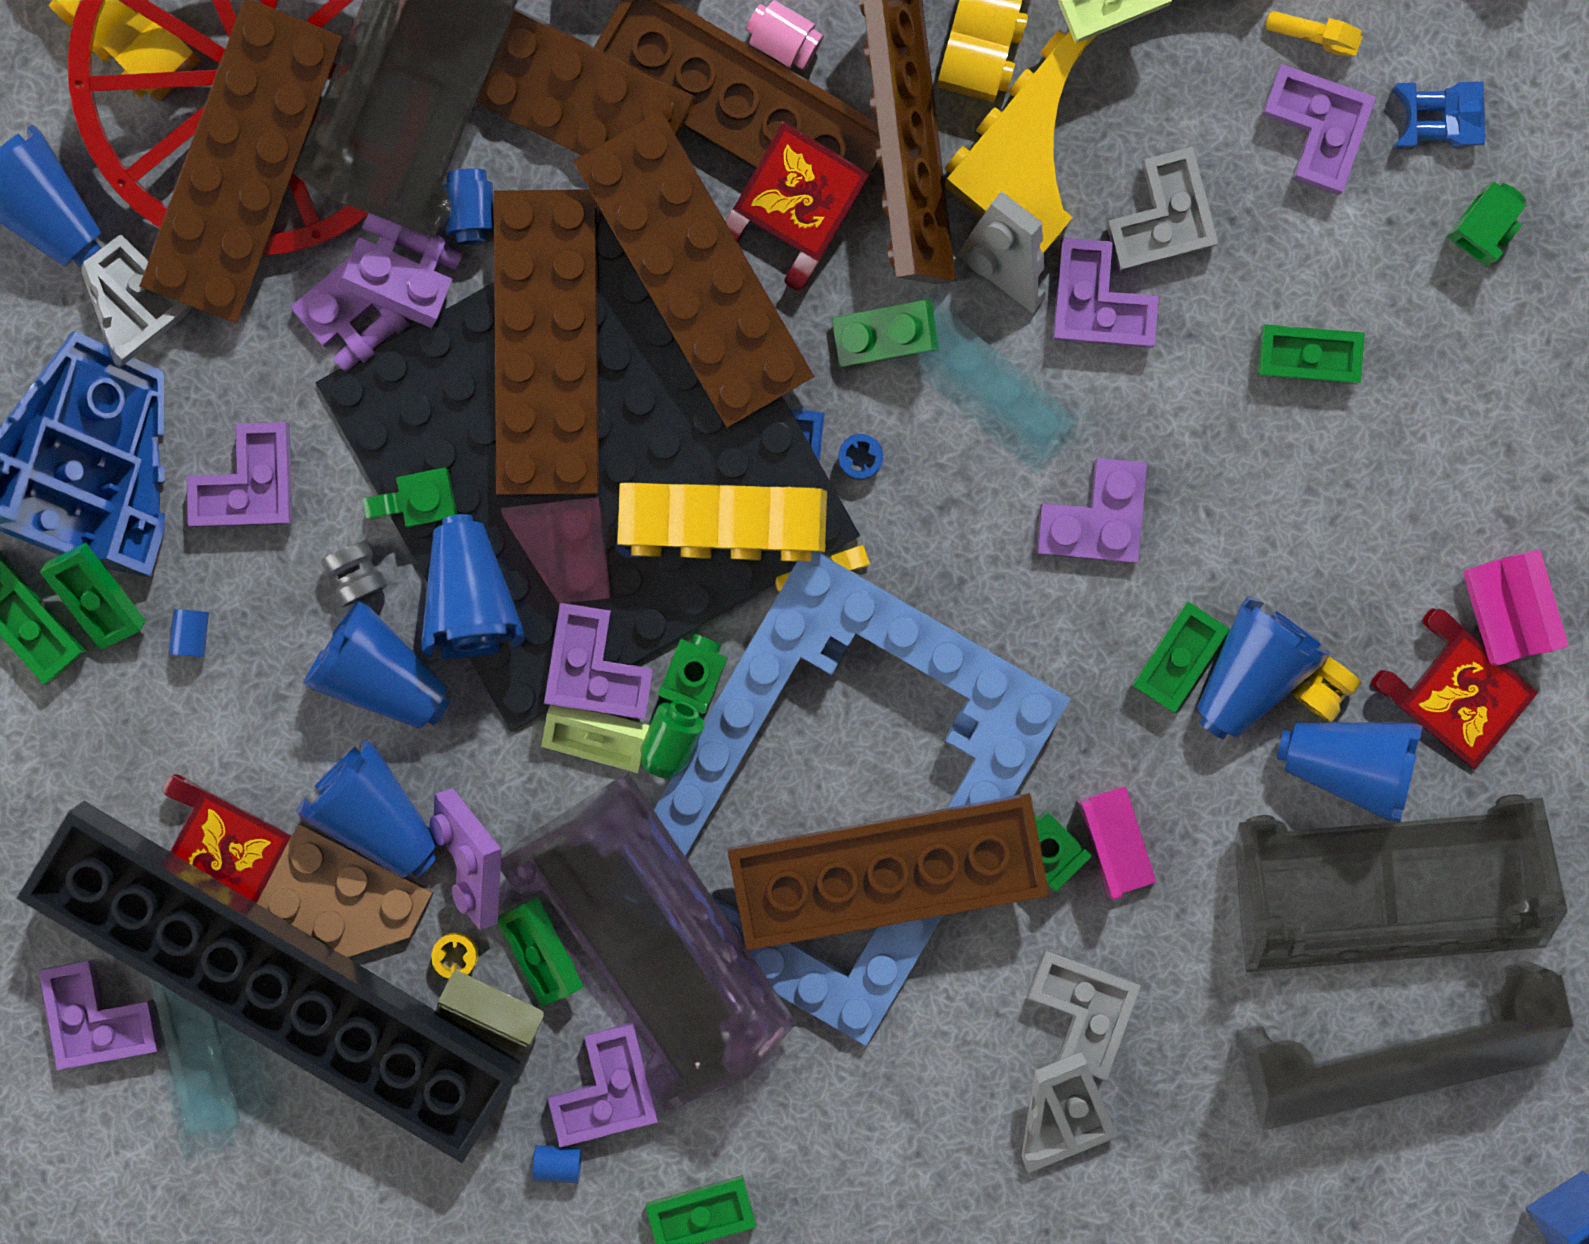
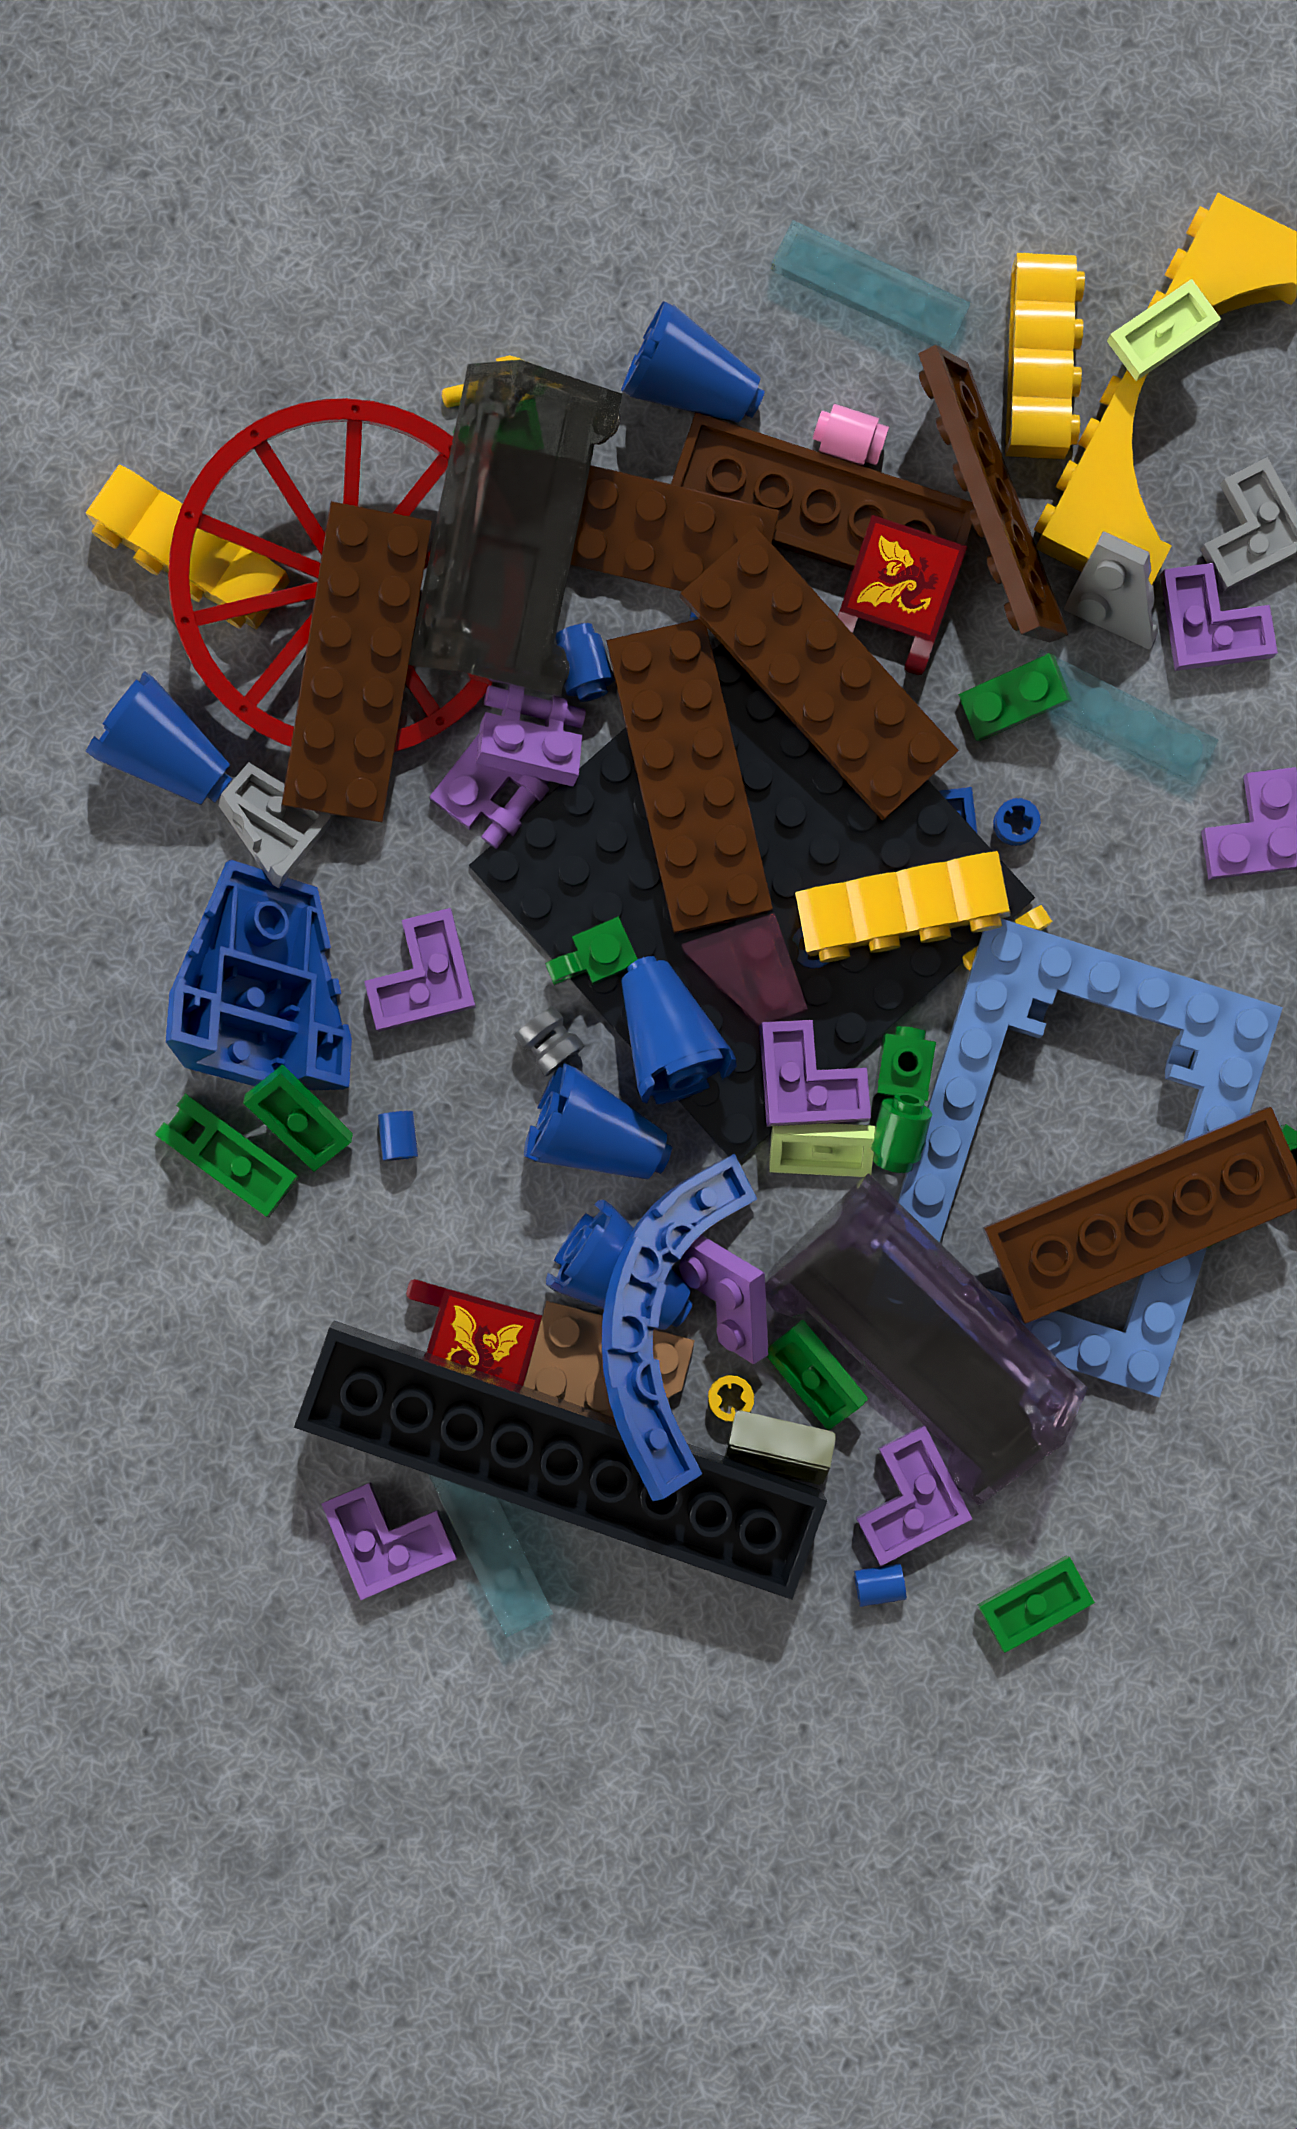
camera: 25 degrees left, 5 degrees down
(366, 858) = (634, 1312): none -> blue plate

